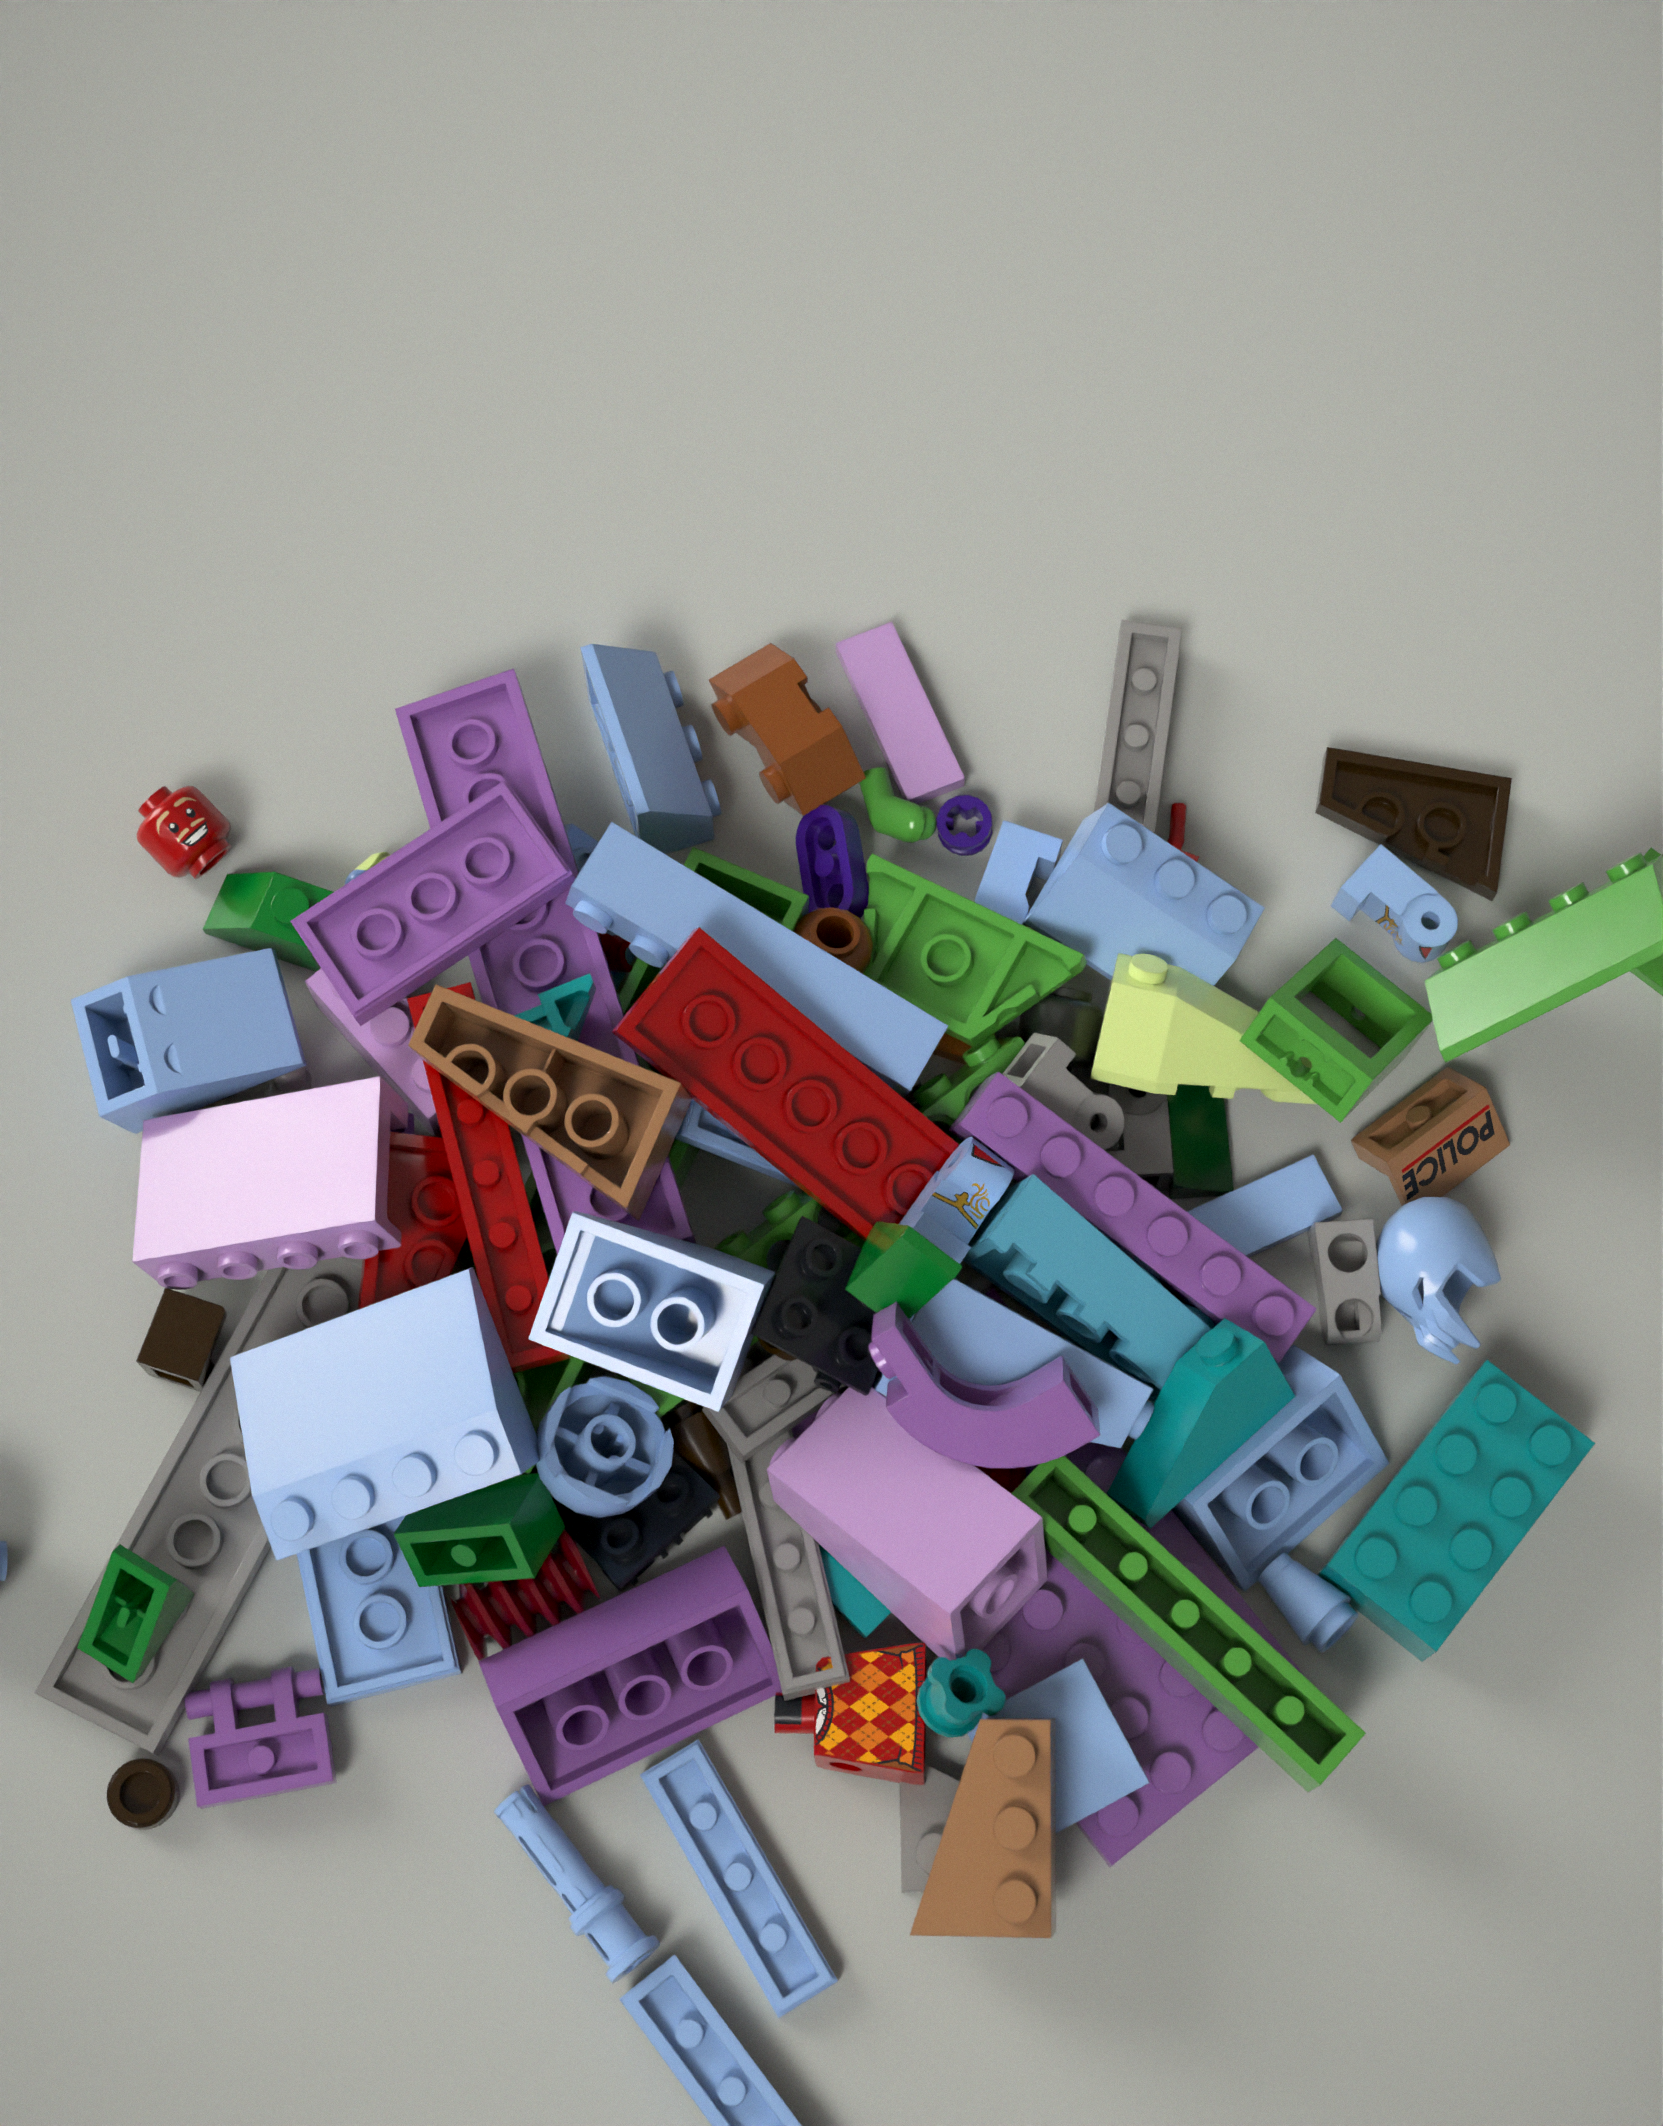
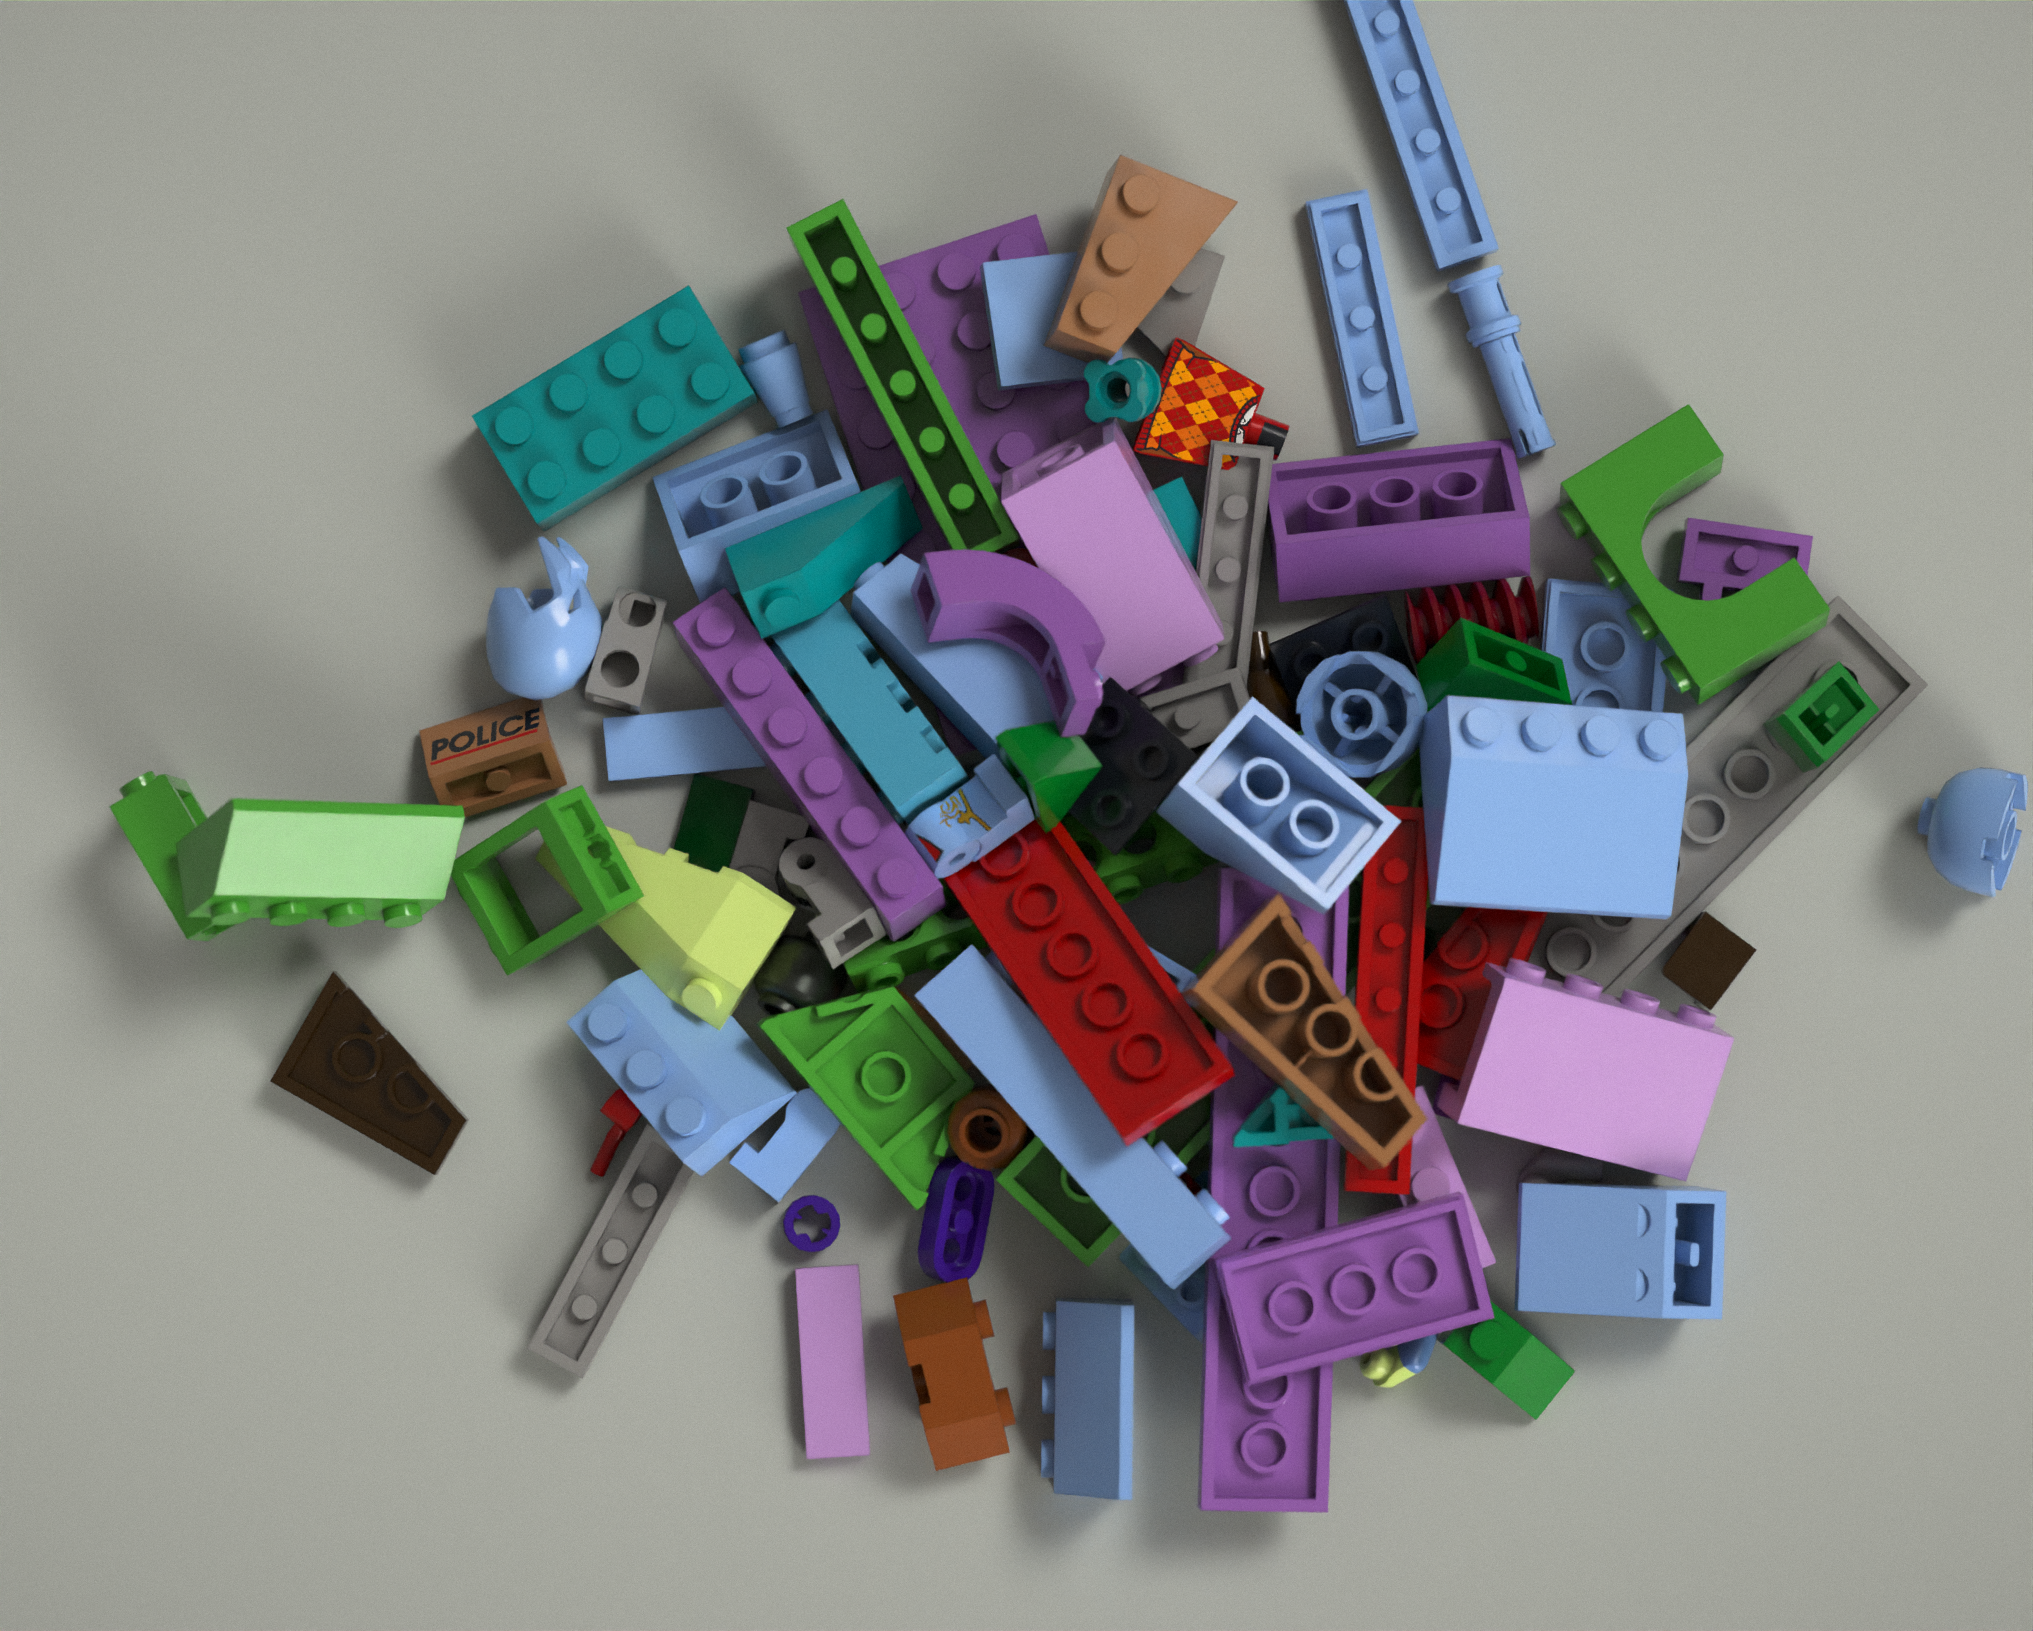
camera: 160 degrees left, 15 degrees up
(143, 1794) = (1856, 569): dark brown tile -> none
(183, 831) = (1565, 1471): red head -> none
(413, 1760) = (1702, 640): none -> bright green arch
(894, 815) = (878, 1256): bright green arm -> none
(1400, 904) = (417, 977): light blue leg -> none

